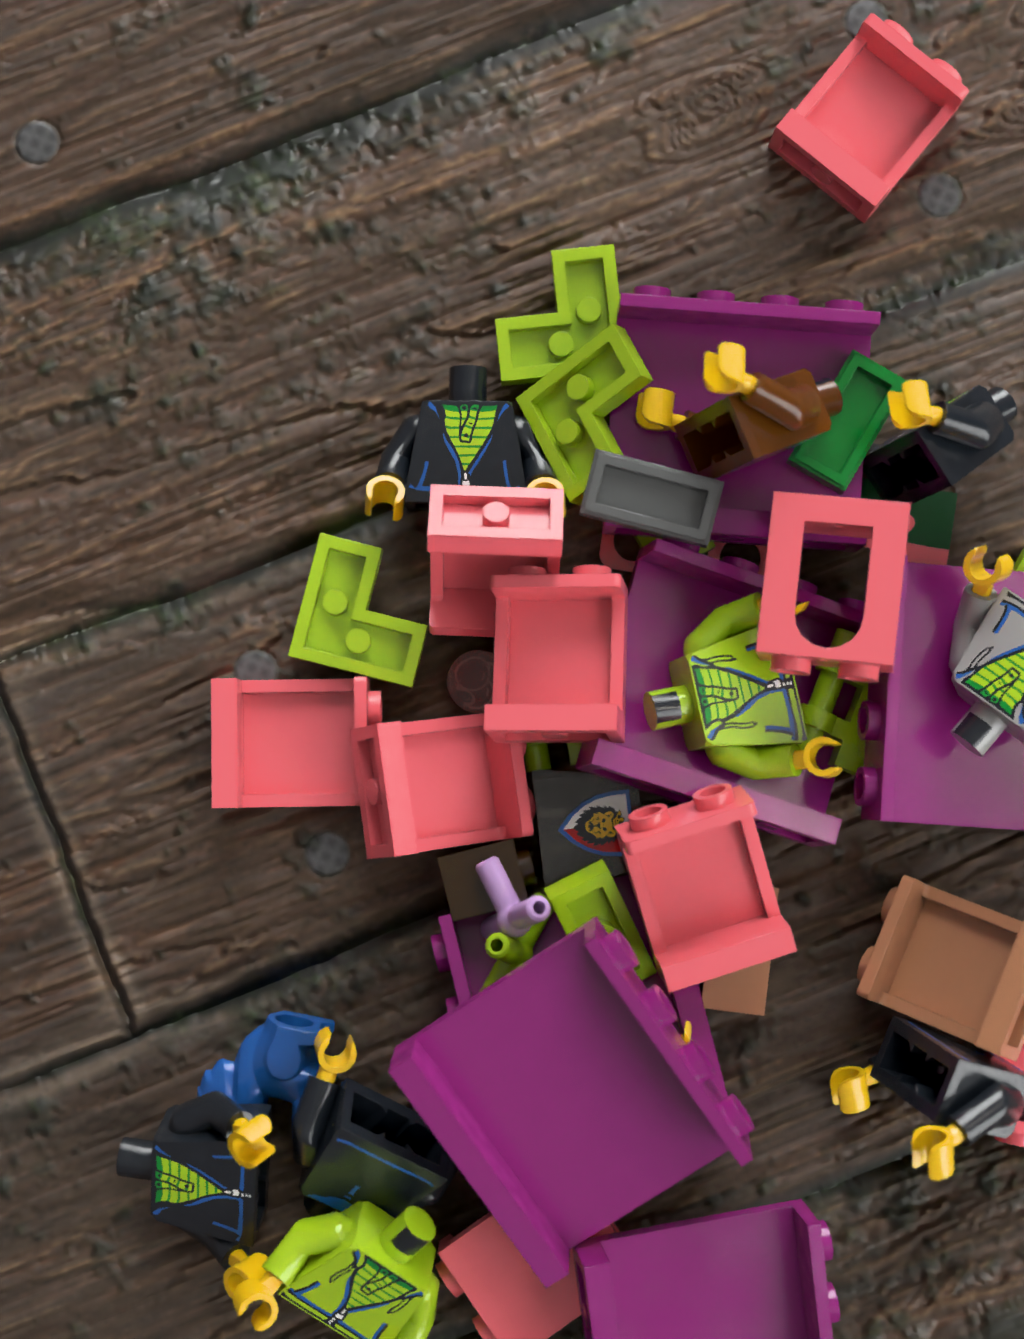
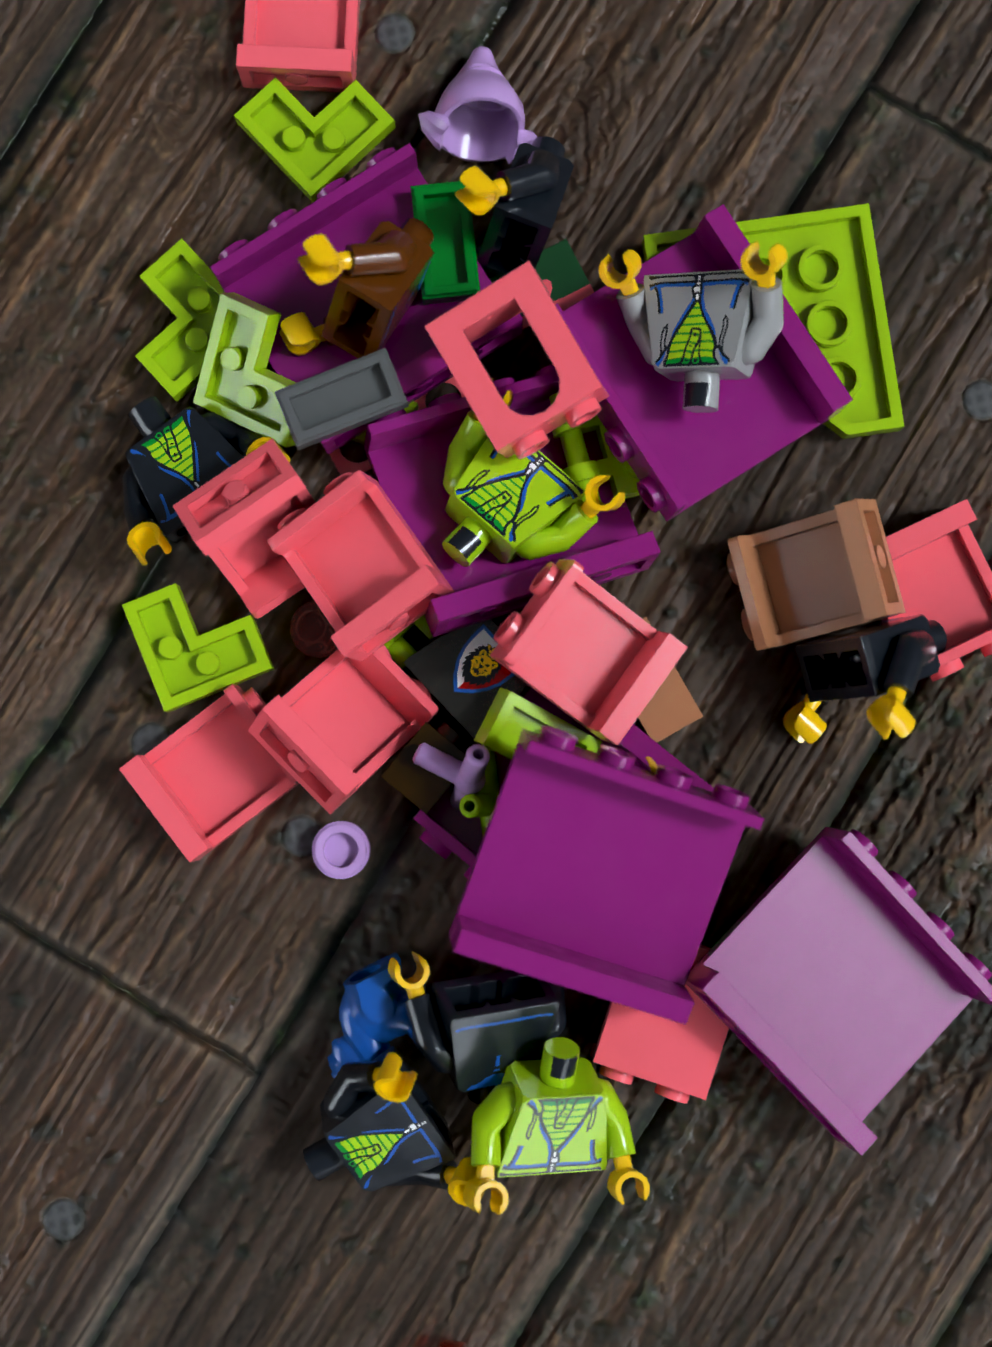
camera: 35 degrees left, 0 degrees up
(353, 893) = (341, 849): none -> lavender tile
(788, 248) = (317, 147): none -> lime plate
(962, 326) = (478, 114): none -> lavender hat

